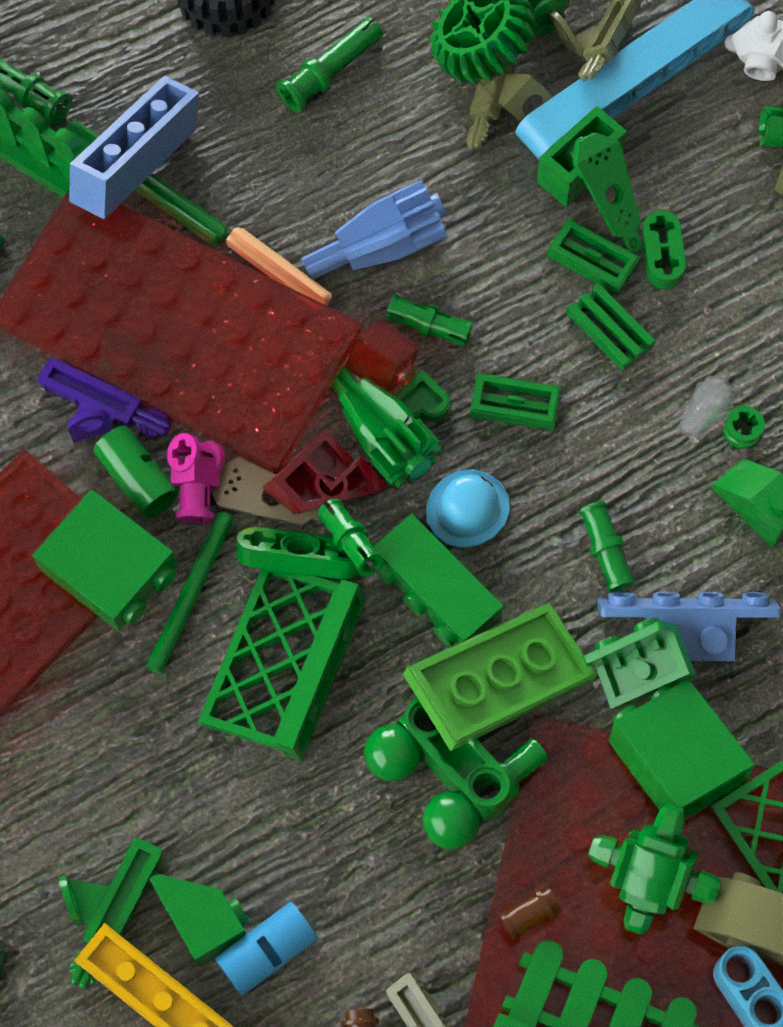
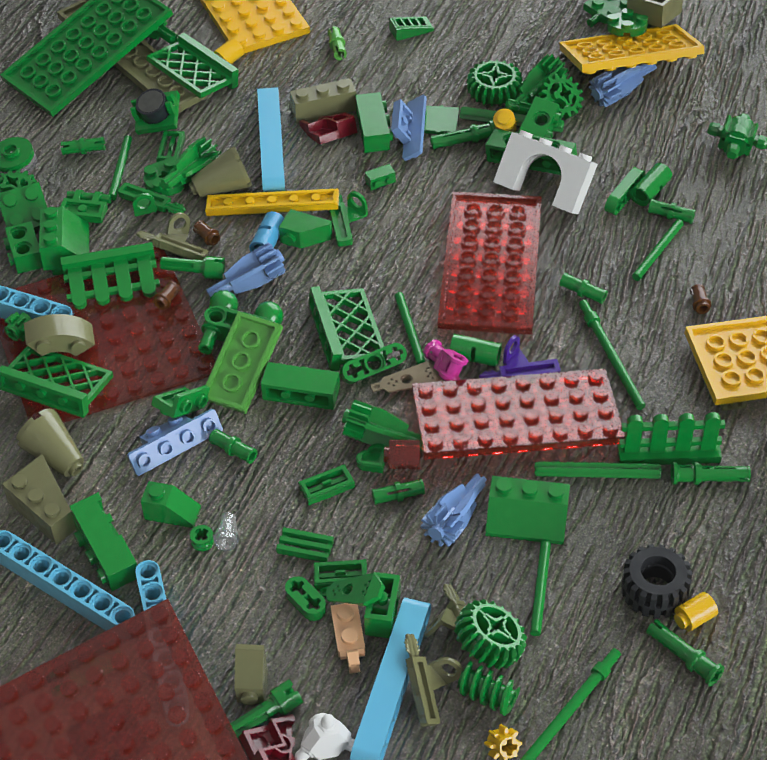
camera: 145 degrees right, 20 degrees down
(106, 561) = (449, 301): green brick -> none
(133, 147) = (608, 457): medium blue brick -> none
(274, 265) = (469, 469): light nougat axle -> none
(286, 179) = (527, 510): none -> green slope
(317, 73) = (562, 570): green pin -> none
(320, 474) = (393, 391): dark red slope -> none
(350, 537) = (352, 371): green pin -> none
(355, 873) = (251, 271): none -> medium blue piece
(358, 80) = (540, 588): none -> green bar
(419, 944) = (210, 267): none -> green piece
(467, 508) = (312, 428): medium azure hat -> none
(648, 160) = (348, 634): none -> light nougat hinge
(654, 869) = (121, 326): green piece -> none
(680, 749) = (138, 376): green brick -> none

